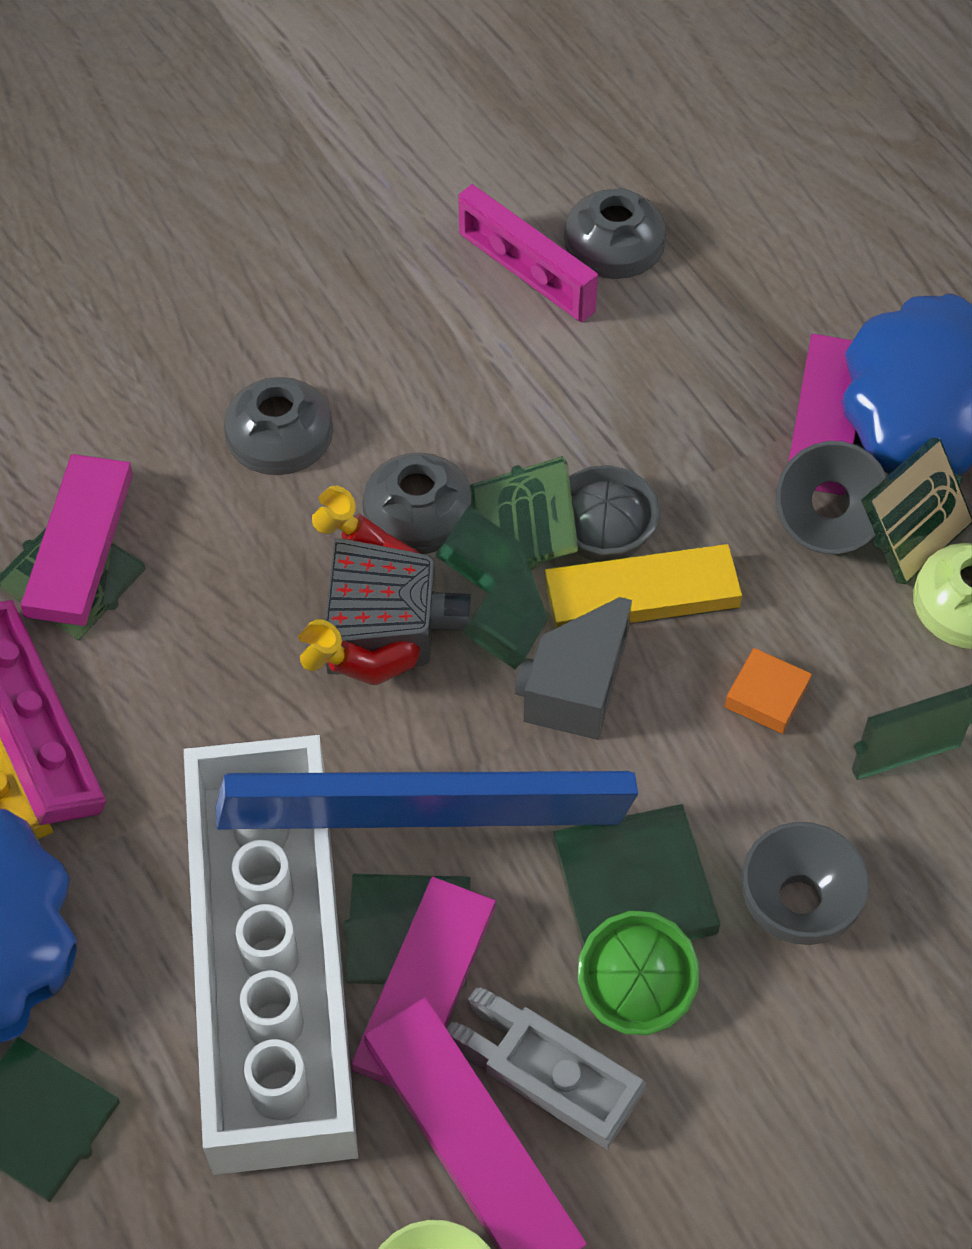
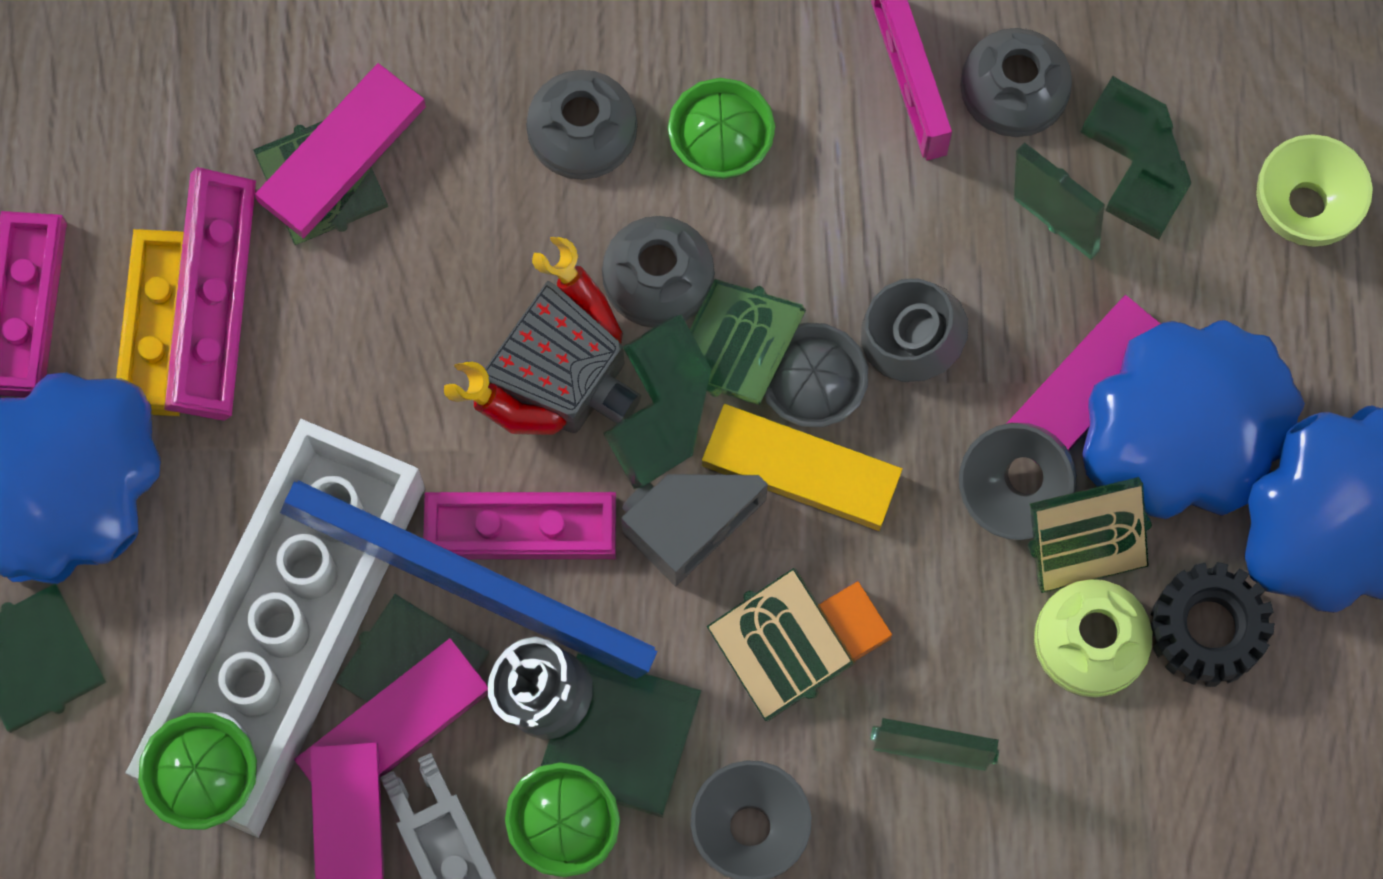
camera: 30 degrees right, 15 degrees up
(279, 1097) = (197, 771): none -> bright green hat
(402, 371) = (721, 128): none -> bright green hat
(456, 741) = (522, 524): none -> dark pink tile
(549, 897) = (562, 684): none -> dark grey wheel
(662, 438) = (930, 340): none -> dark grey hat
(717, 282) = (1058, 201): none -> clear green piece
(724, 732) = (781, 644): none -> piece
(735, 221) = (1142, 132): none -> clear green tile
(904, 180) = (1326, 168): none -> yellowish green piece

